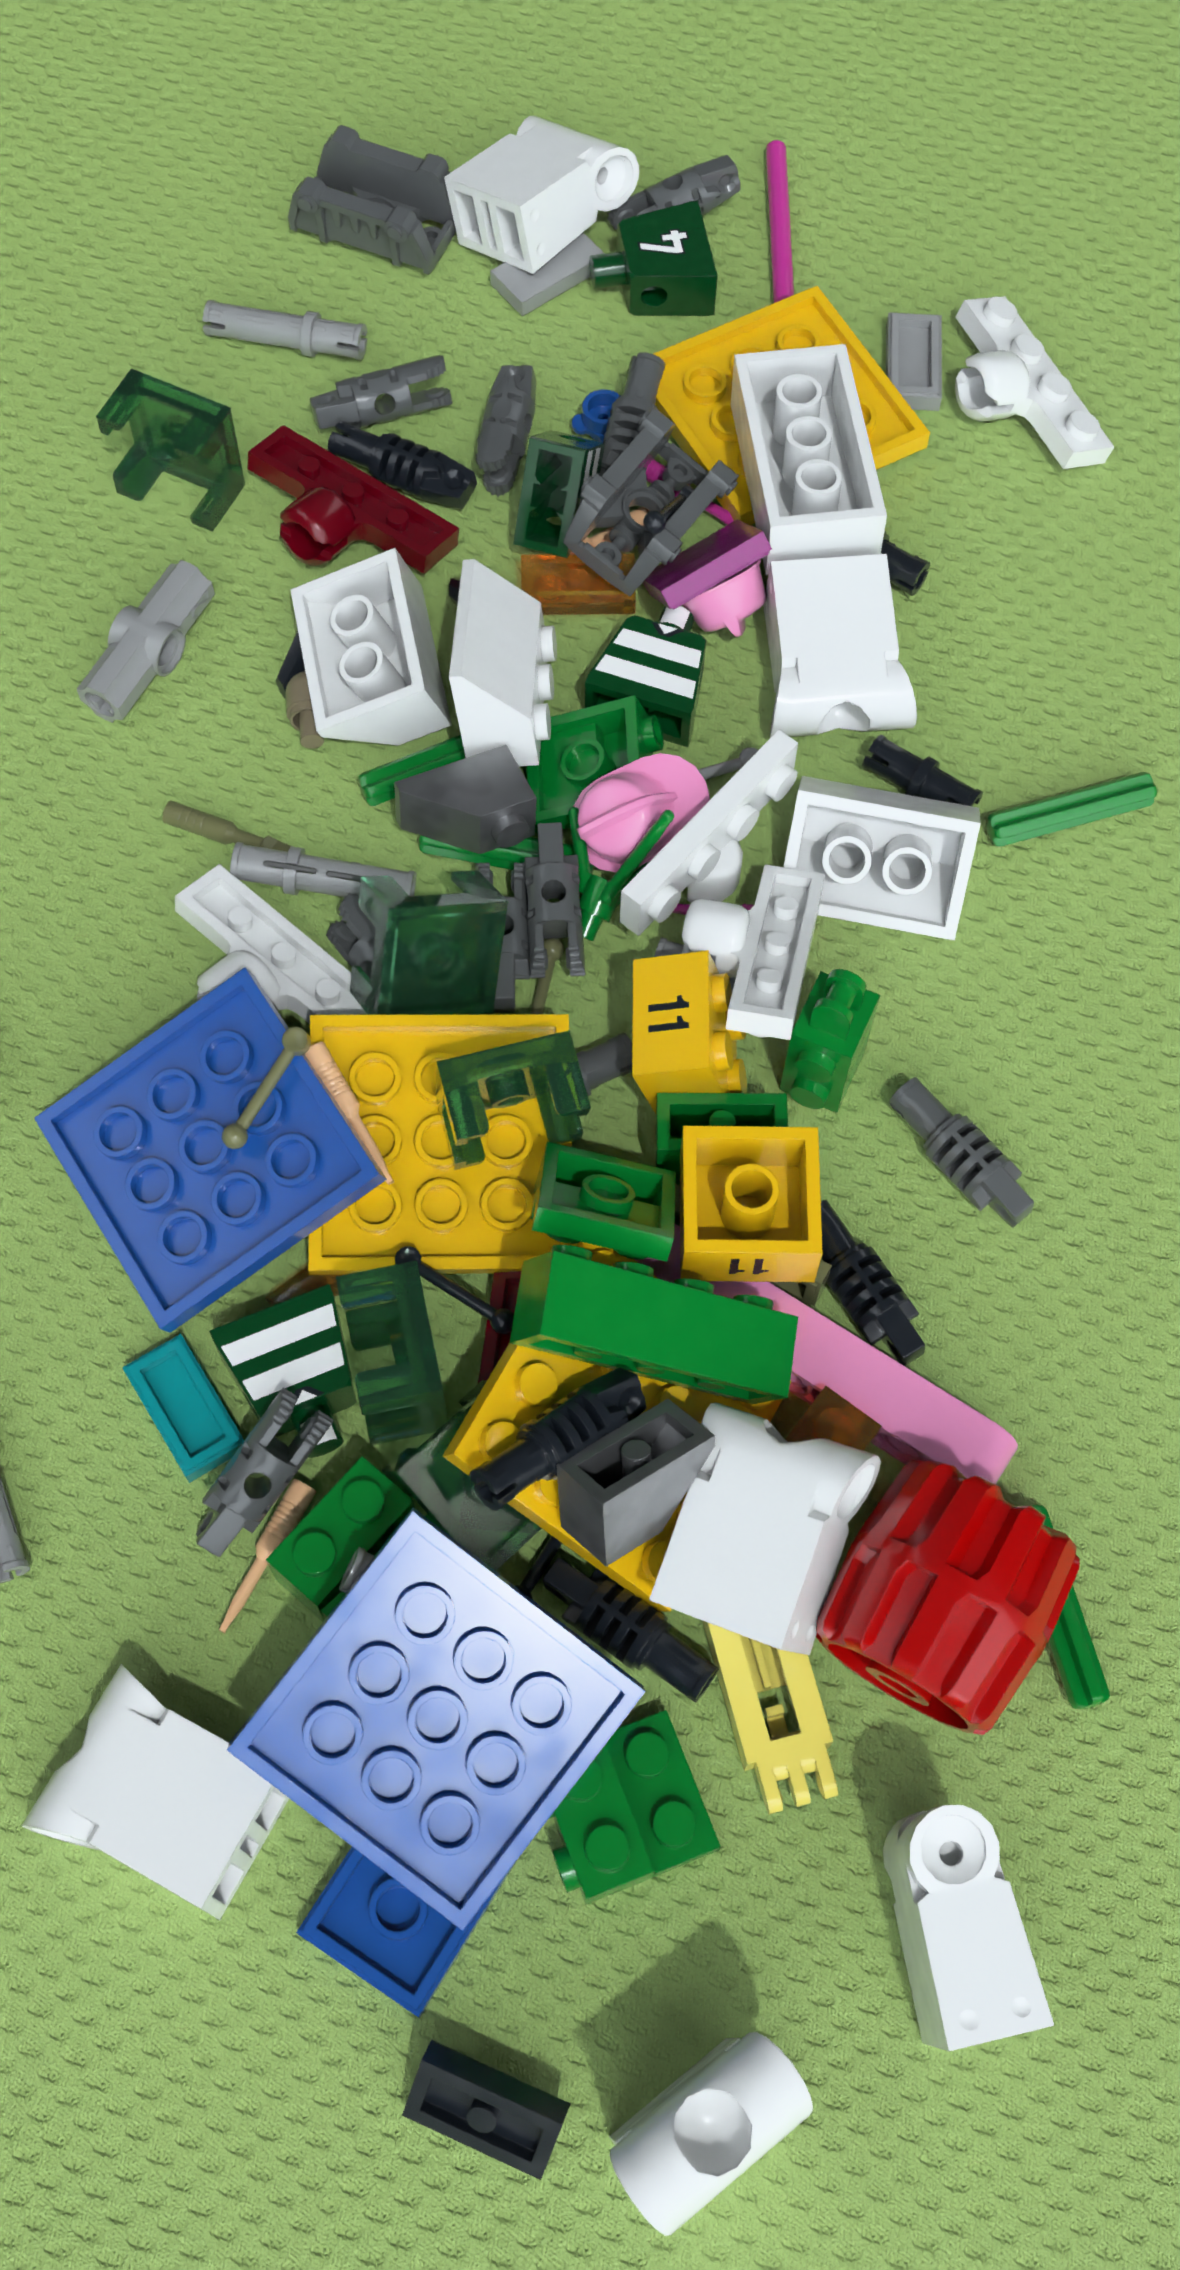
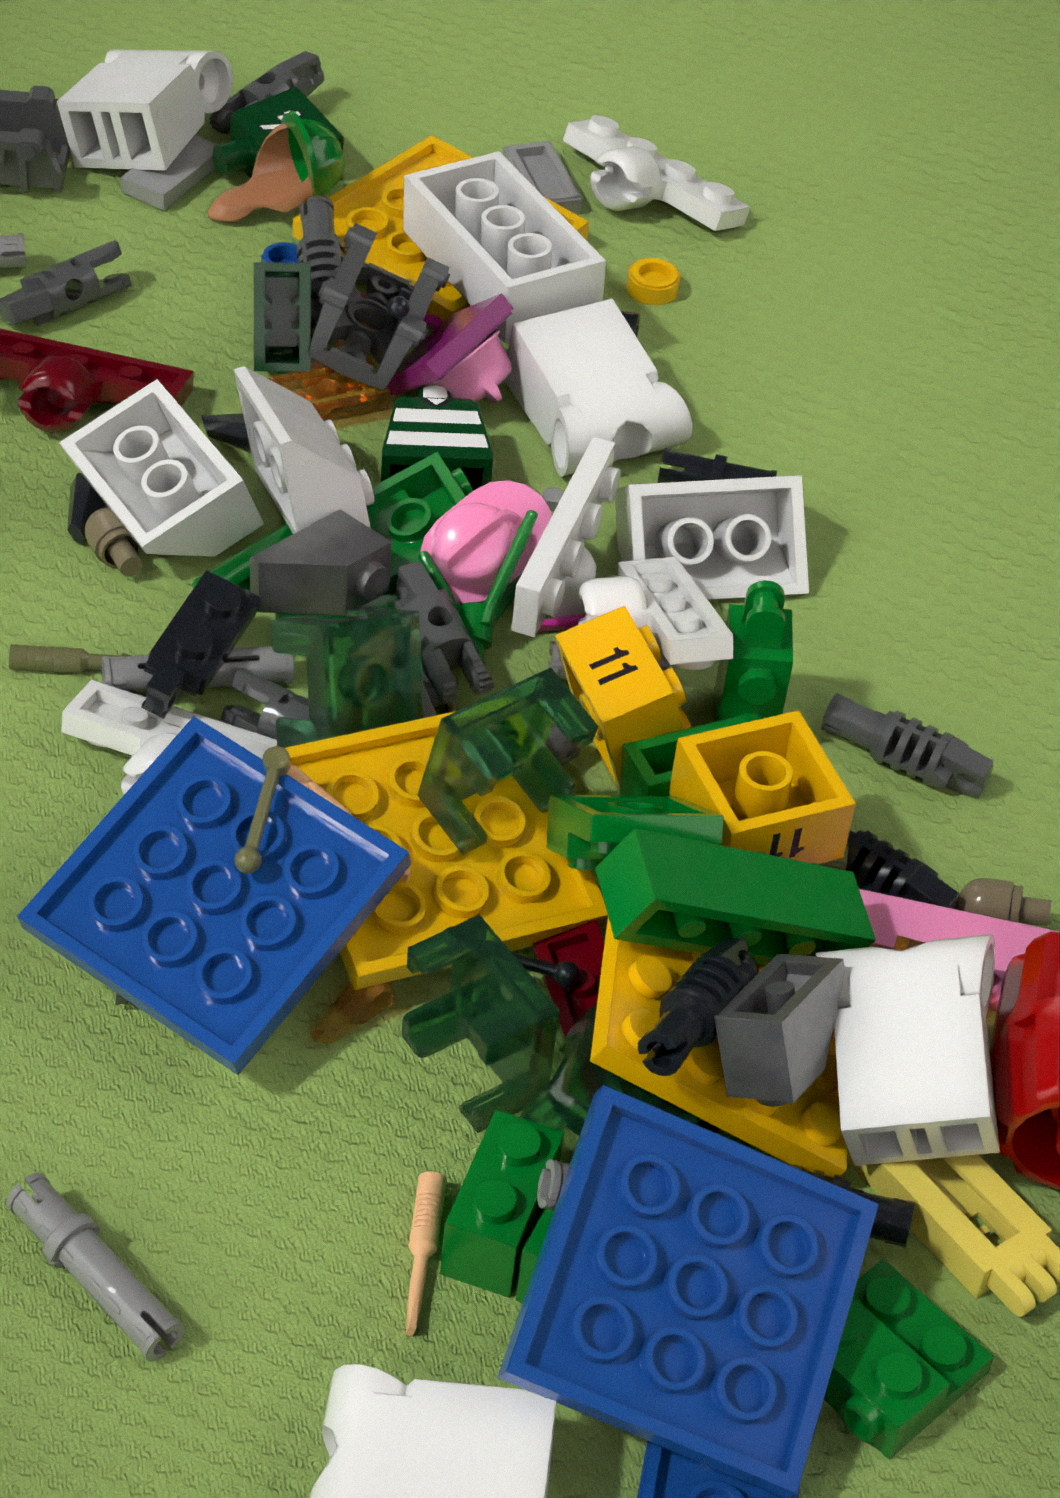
camera: 25 degrees left, 20 degrees down
(184, 1407) = (276, 1148): teal tile -> none
(244, 1501) = (376, 1195): dark grey hinge -> none
(293, 1348) = (373, 1075): dark green torso -> none
(321, 855) = (197, 641): none -> black hinge
(405, 465) = (136, 337): black hinge -> none
(506, 427) = (197, 290): dark grey hinge -> none
(649, 310) = (291, 166): none -> piece
(779, 221) = (367, 99): dark pink bar -> none
(968, 1363) = (1003, 901): none -> dark tan cylinder
(971, 517) = (653, 281): none -> yellow tile
(1071, 809) = (861, 470): axle -> none

